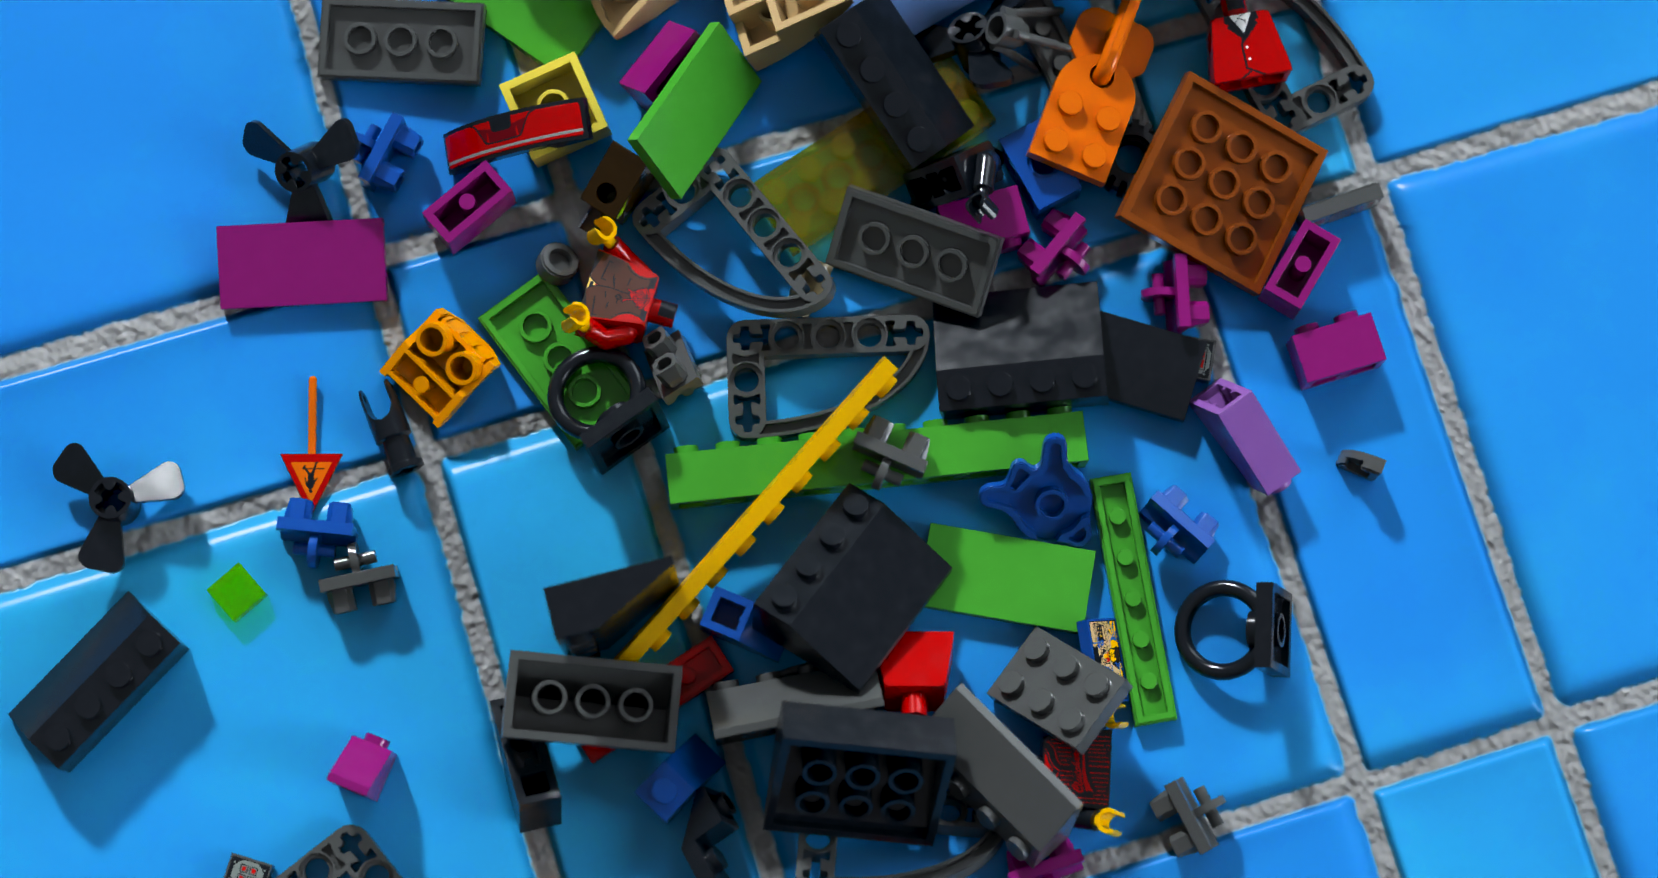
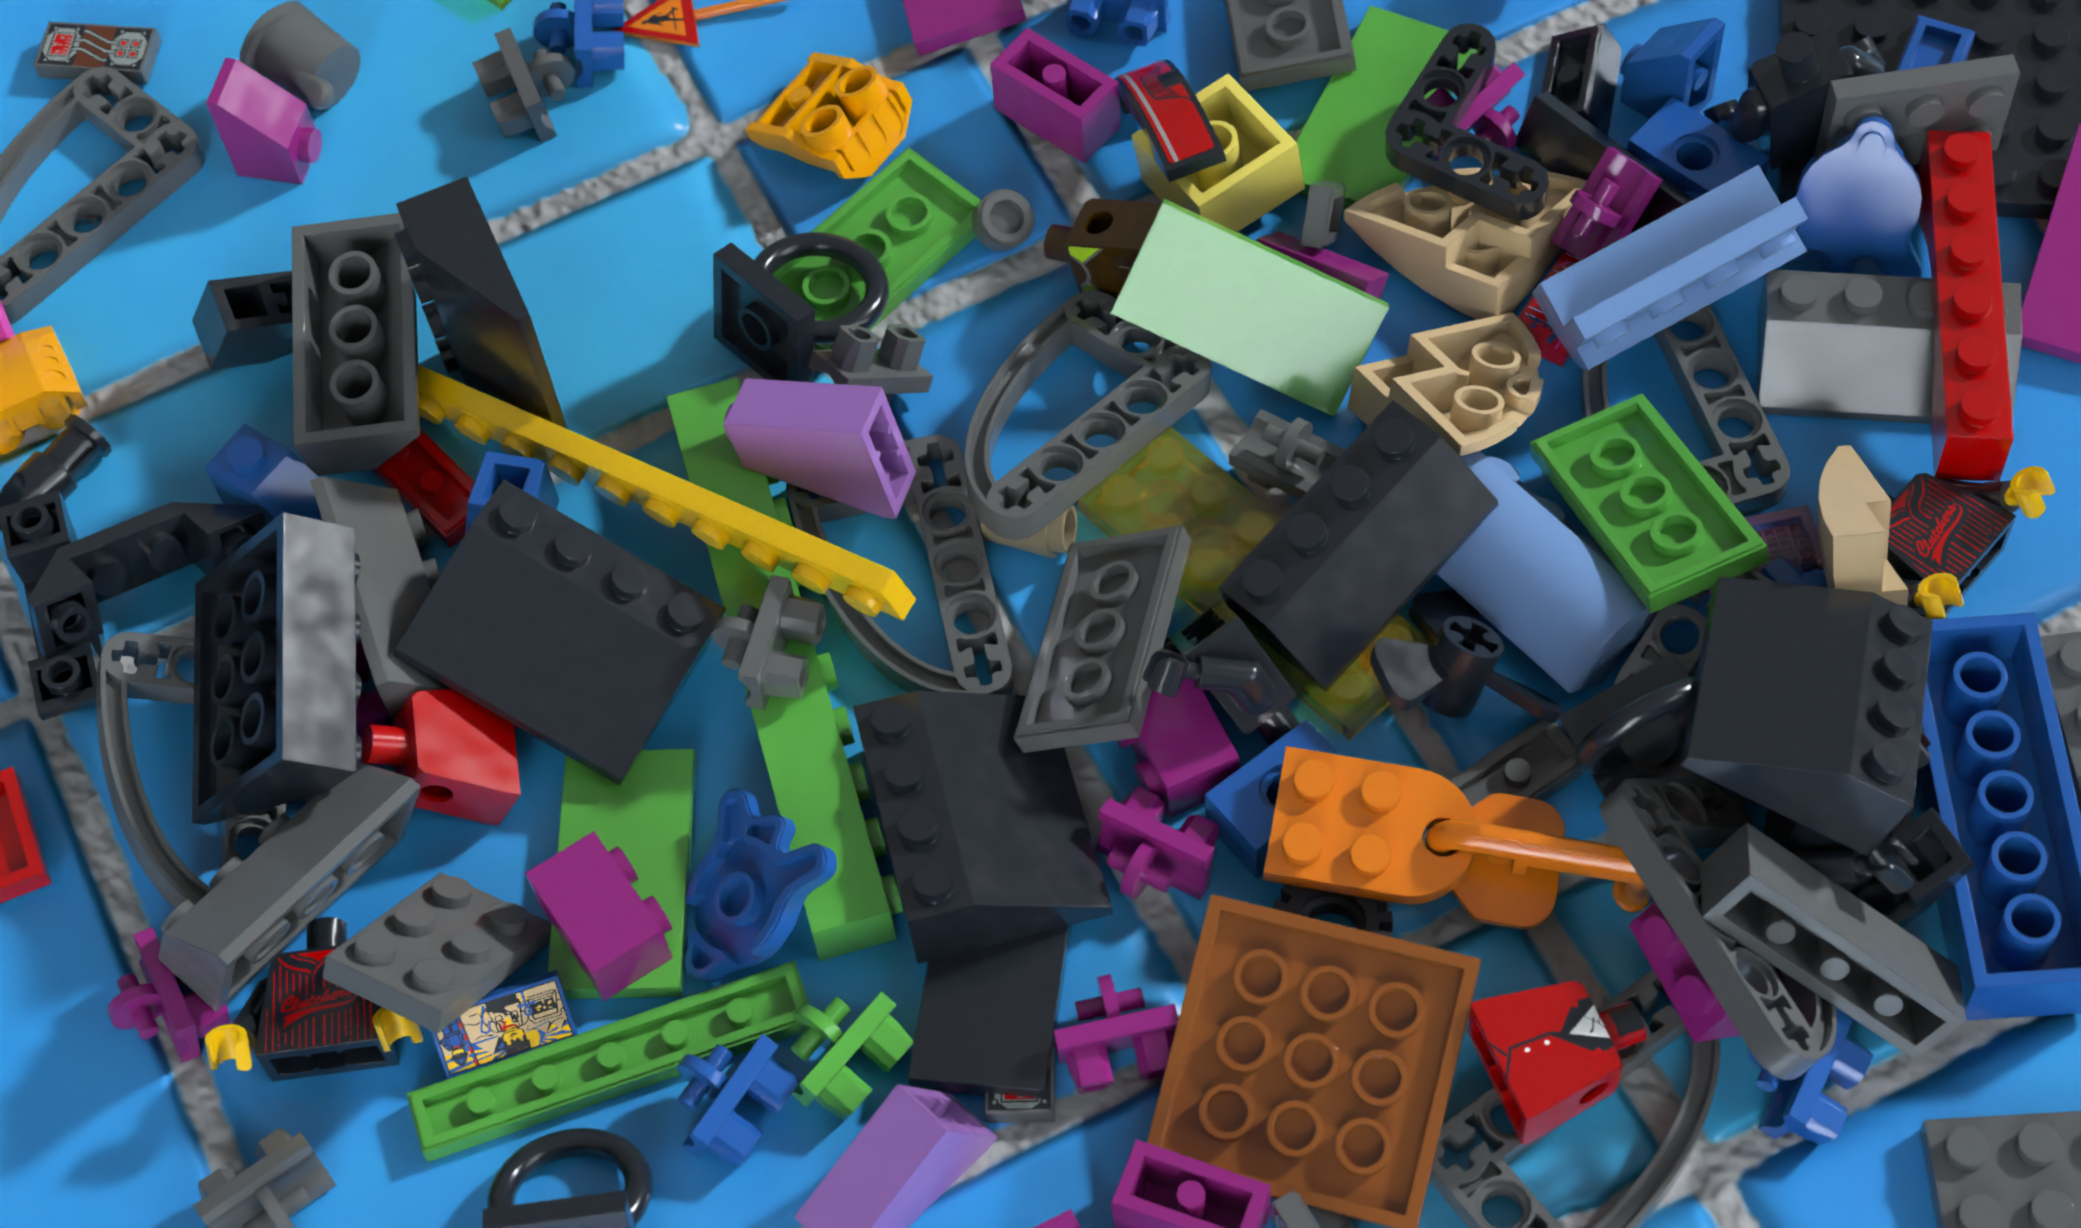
camera: 90 degrees right, 20 degrees down
(303, 736) = (301, 55): none -> dark grey hat
(393, 435) = (735, 81): black piece -> none
(618, 295) = (957, 284): torso -> none
(621, 49) = (1323, 213): none -> dark grey tile
(740, 404) = (823, 440): none -> medium lavender slope
(801, 111) = (1283, 454): none -> dark grey hips
(1008, 31) = (1474, 688): dark grey plant -> none
(1049, 588) = (601, 915): none -> magenta brick
(1156, 456) = (831, 1080): none -> bright green hips

